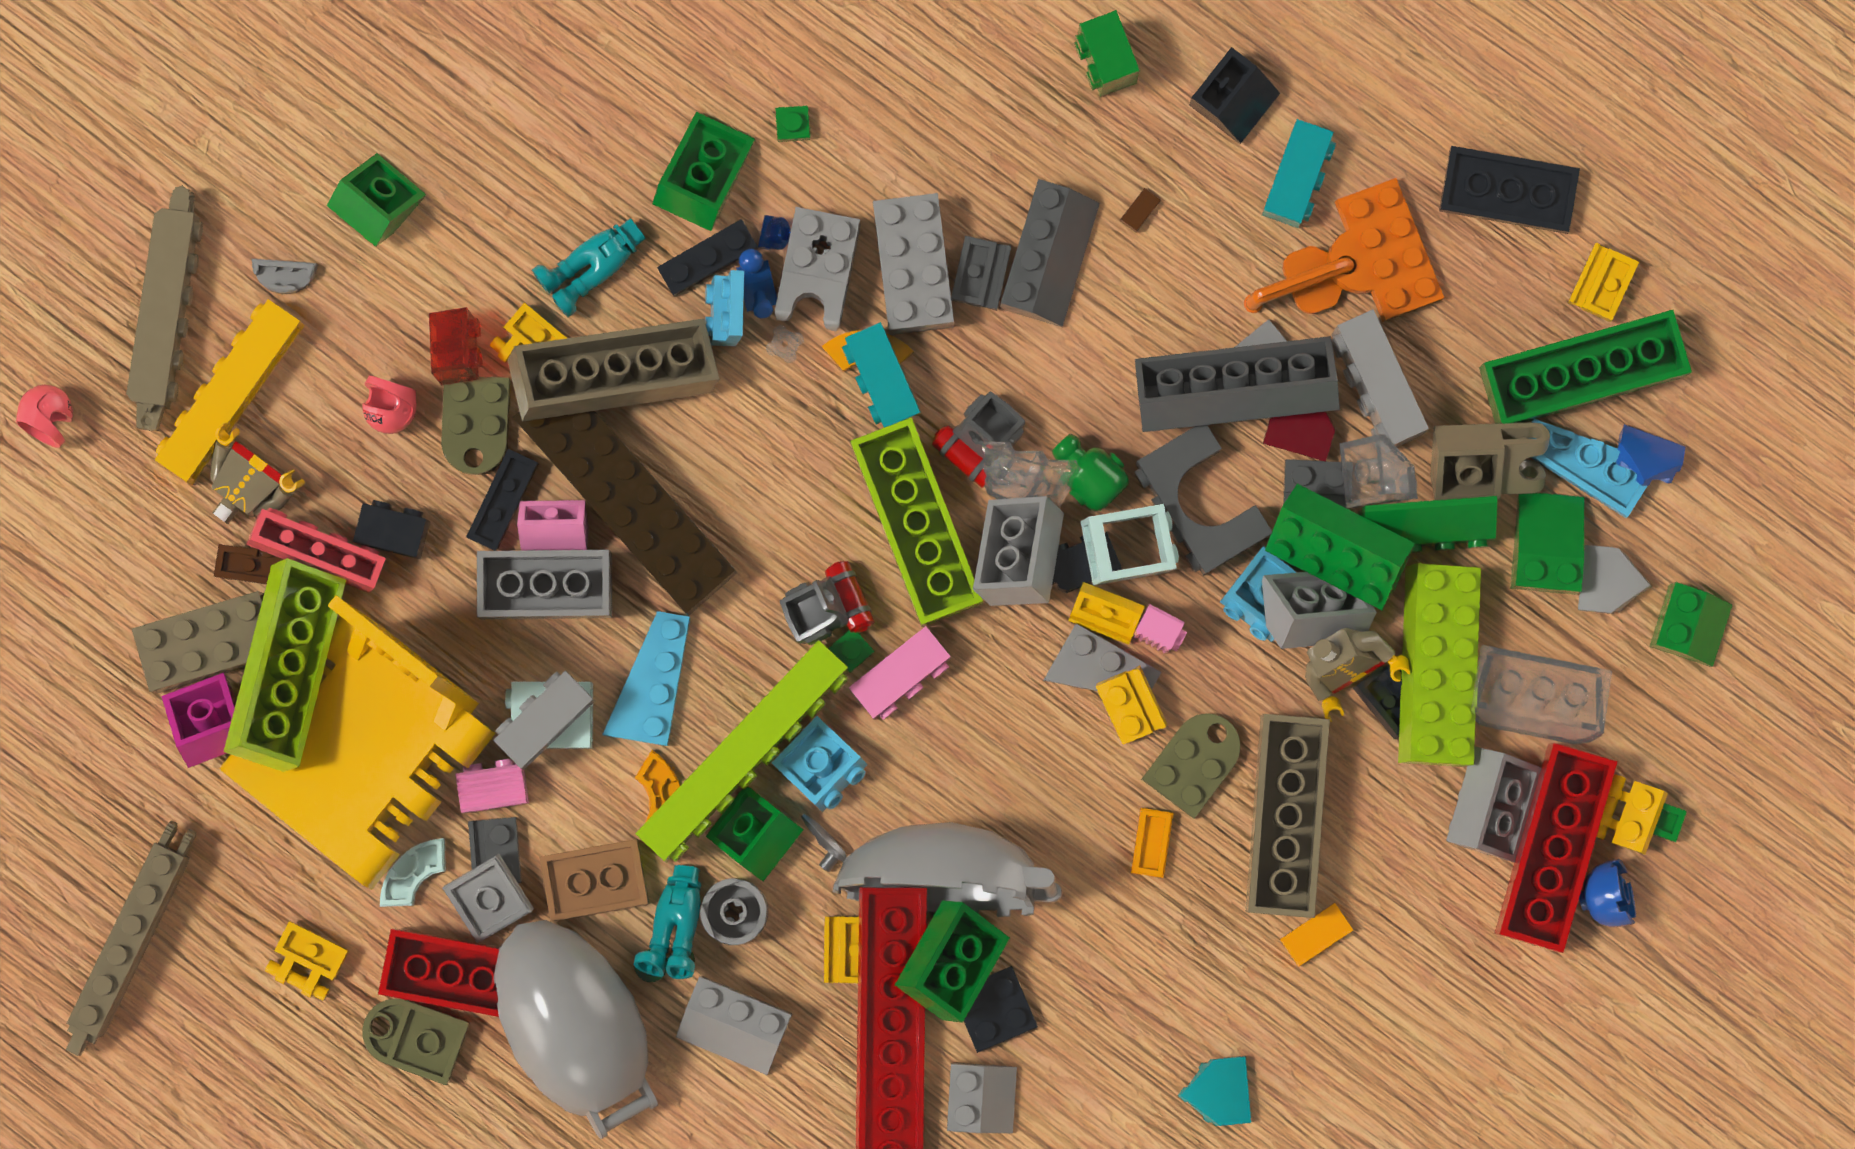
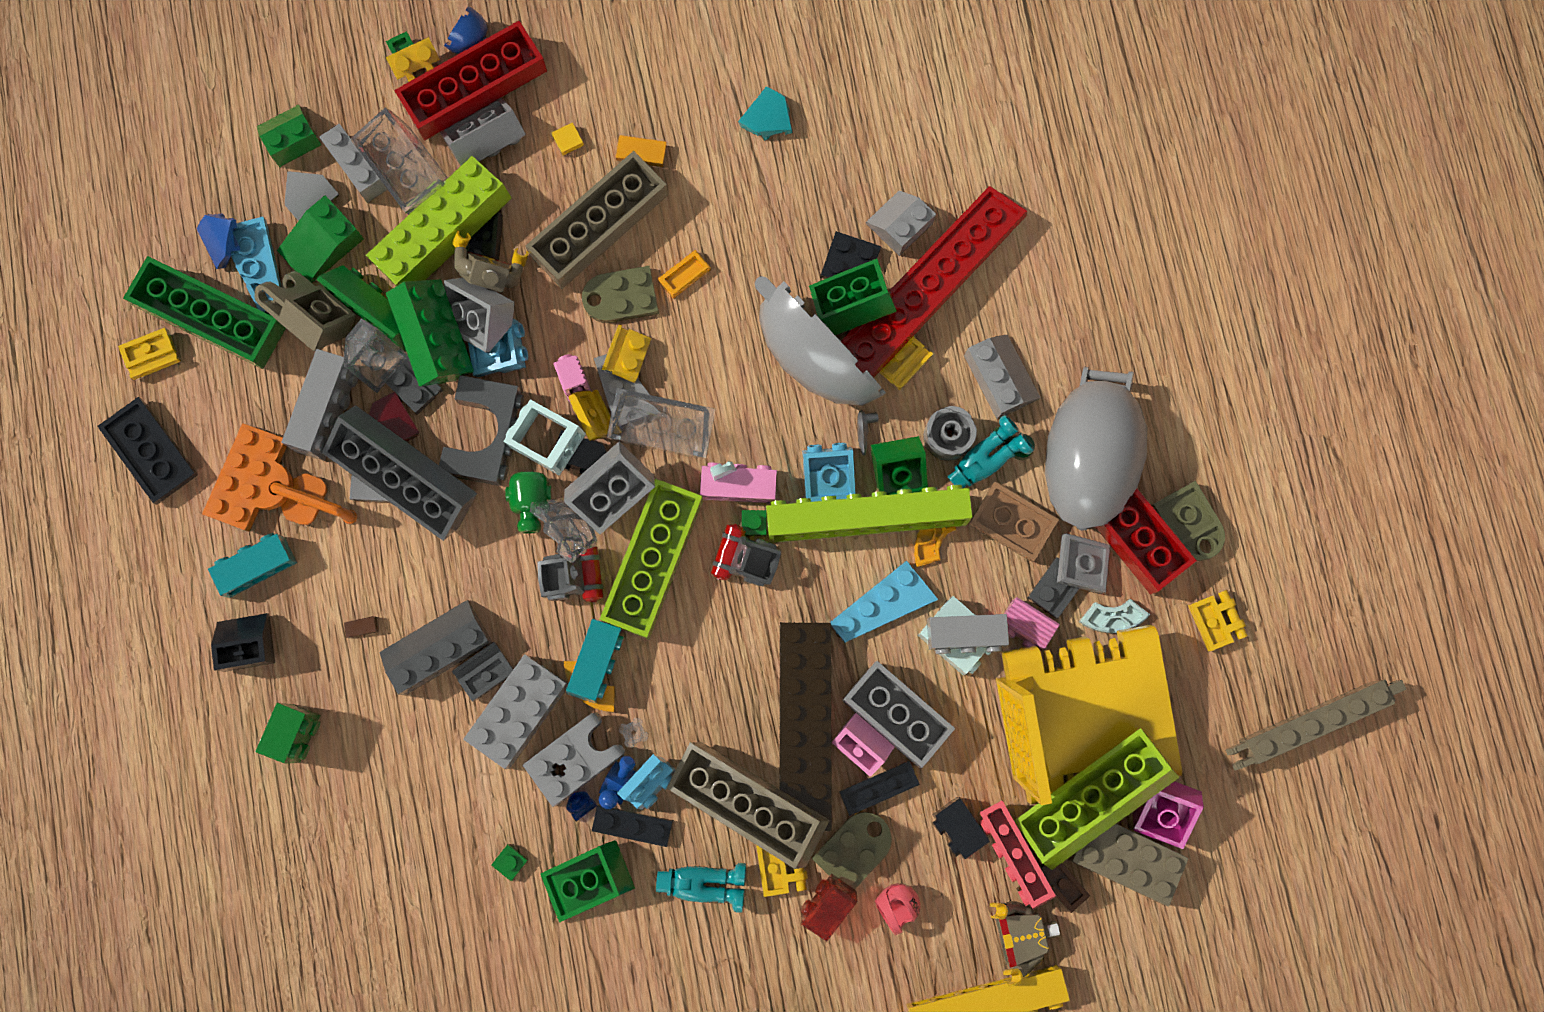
camera: 145 degrees left, 5 degrees down
(924, 669) = (719, 471): none -> light aqua tile
(1025, 658) = (661, 424): none -> clear windscreen
(1403, 878) = (567, 139): none -> yellow tile
(1620, 656) = (353, 163): none -> light grey brick

